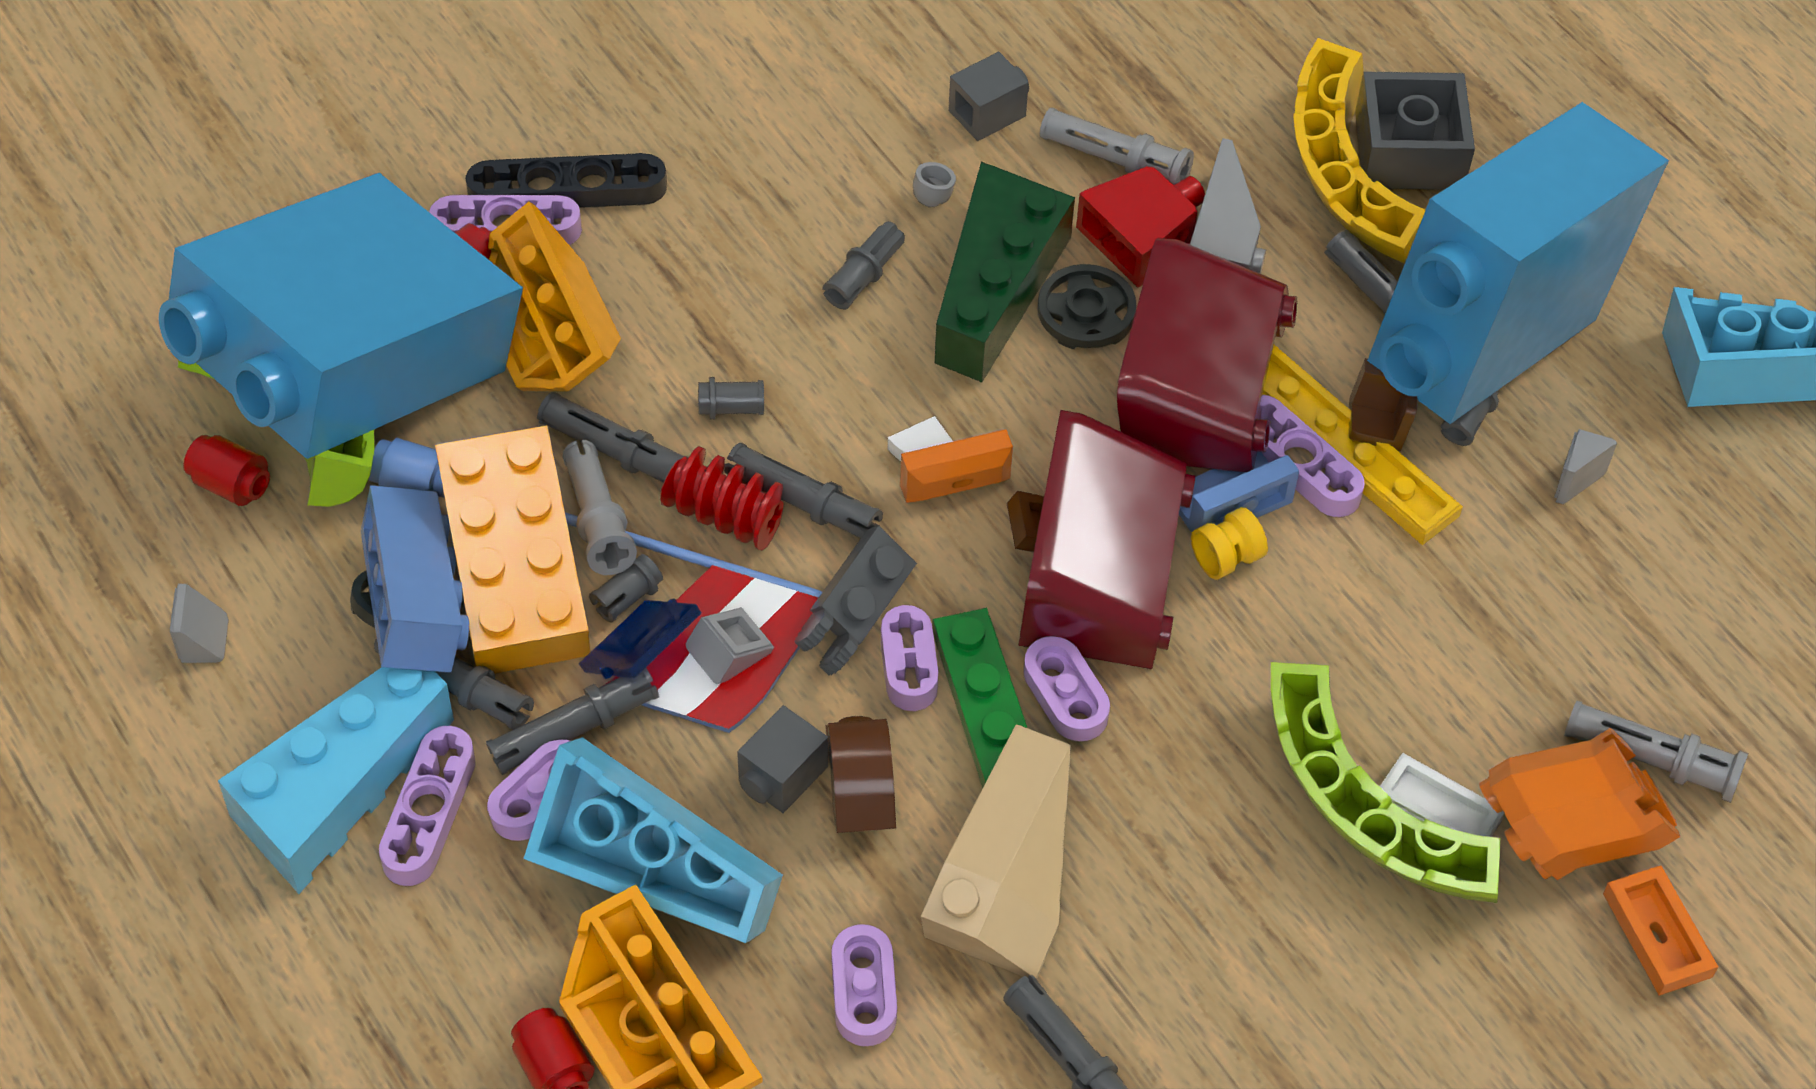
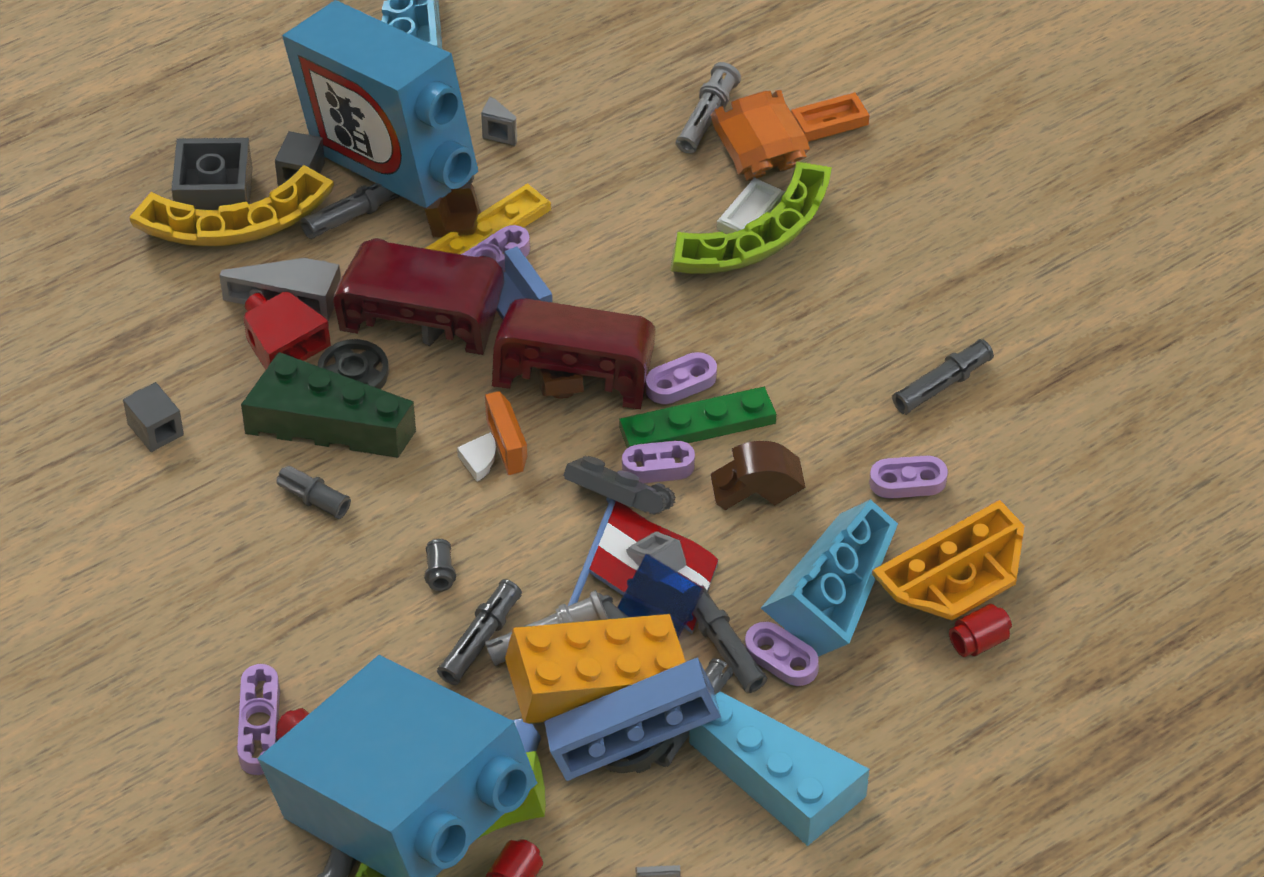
camera: 90 degrees left, 5 degrees down
(431, 829) = (824, 714): lavender beam -> none
(561, 318) = (413, 643): light orange wedge -> none
(567, 174) = (222, 681): black beam -> none
(724, 498) = (537, 555): red piece -> none
(782, 759) = (749, 520): dark grey brick -> none
(822, 501) = (531, 510): dark grey pin -> none
(933, 184) = (238, 450): light grey hinge -> none
(1006, 866) = (819, 405): tan wedge -> none
(1142, 149) = (216, 333): light grey pin -> none
(1229, 543) = (565, 288): yellow wheel -> none

